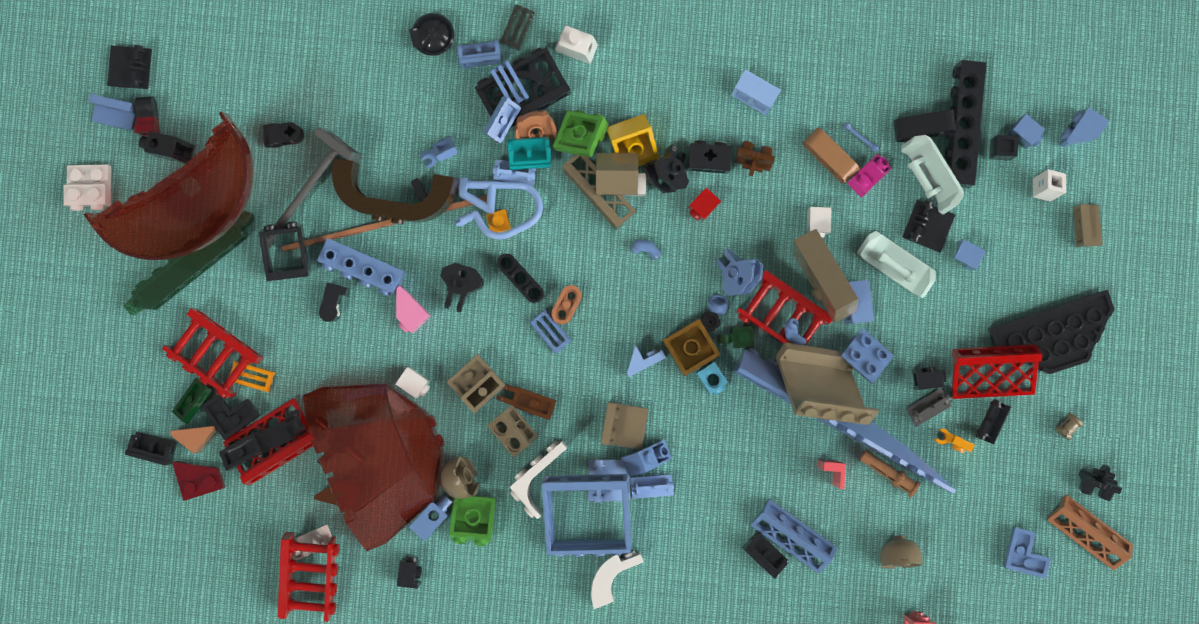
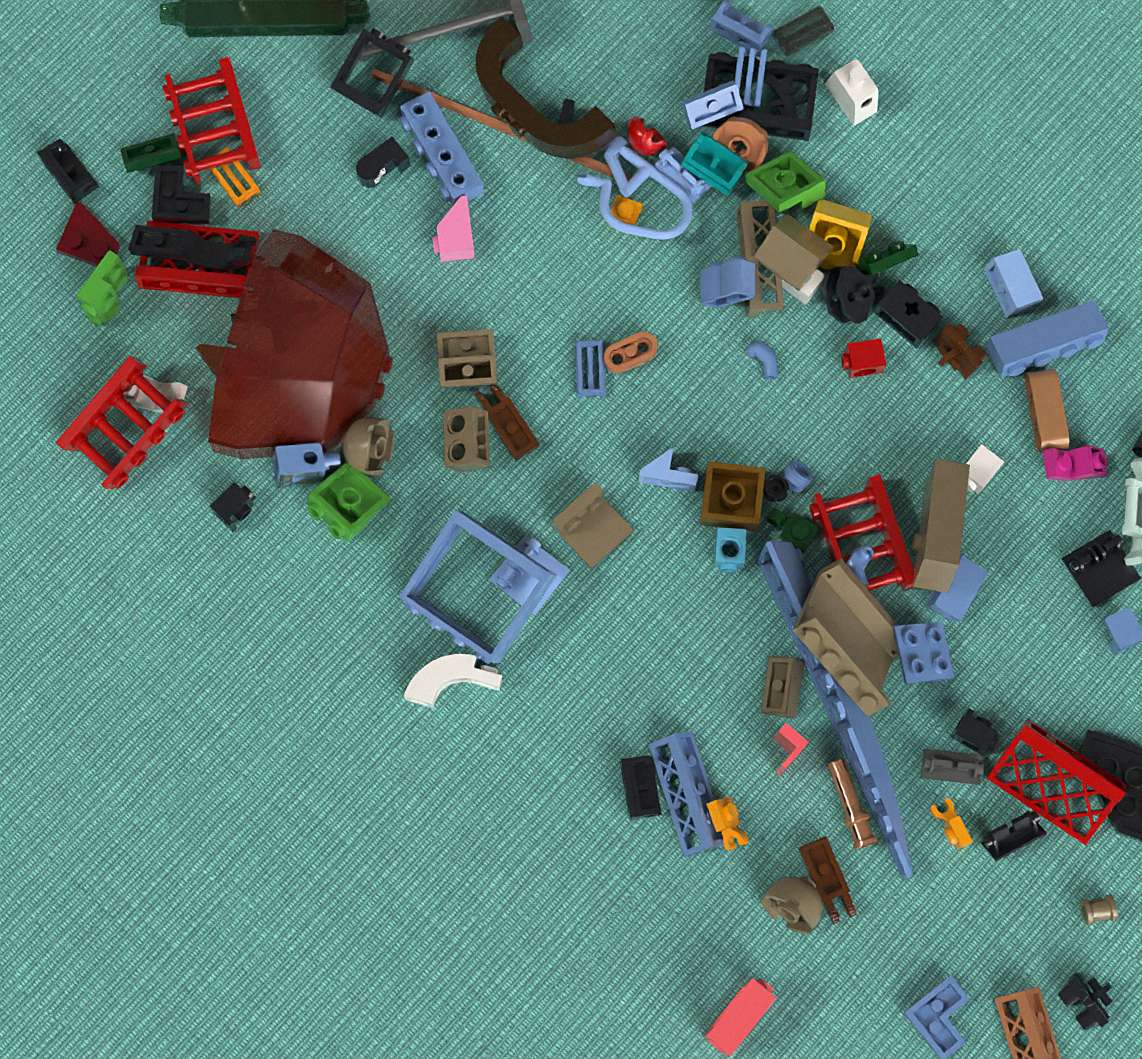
camera: 35 degrees right, 10 degrees down
(194, 438) = (124, 193): nougat slope -> none
(232, 513) = (98, 293): none -> bright green plate
(413, 383) = (399, 309): white brick -> none
(441, 150) = (622, 94): medium blue plate -> none
(461, 286) = (536, 243): black hinge -> none
(476, 168) = (644, 140): none -> red hair
(516, 269) = (606, 275): black beam -> none
(521, 486) = (441, 497): white bracket -> none
(591, 221) = (727, 282): none -> medium blue brick
(646, 458) = (589, 580): medium blue slope -> none
(652, 486) = (571, 617): light blue hinge -> none
(673, 134) = (879, 261): none -> dark green plate
(739, 273) = (846, 457): medium blue hinge -> none
(800, 435) = (782, 687): none -> dark tan slope
(801, 112) = (1047, 339): none -> medium blue brick
(826, 536) = (725, 819): none -> light orange plate
(874, 148) = (1102, 439): medium blue hinge -> none
(897, 264) = (1033, 582): light aqua piece -> none
(905, 523) = (827, 876): none -> reddish brown hinge

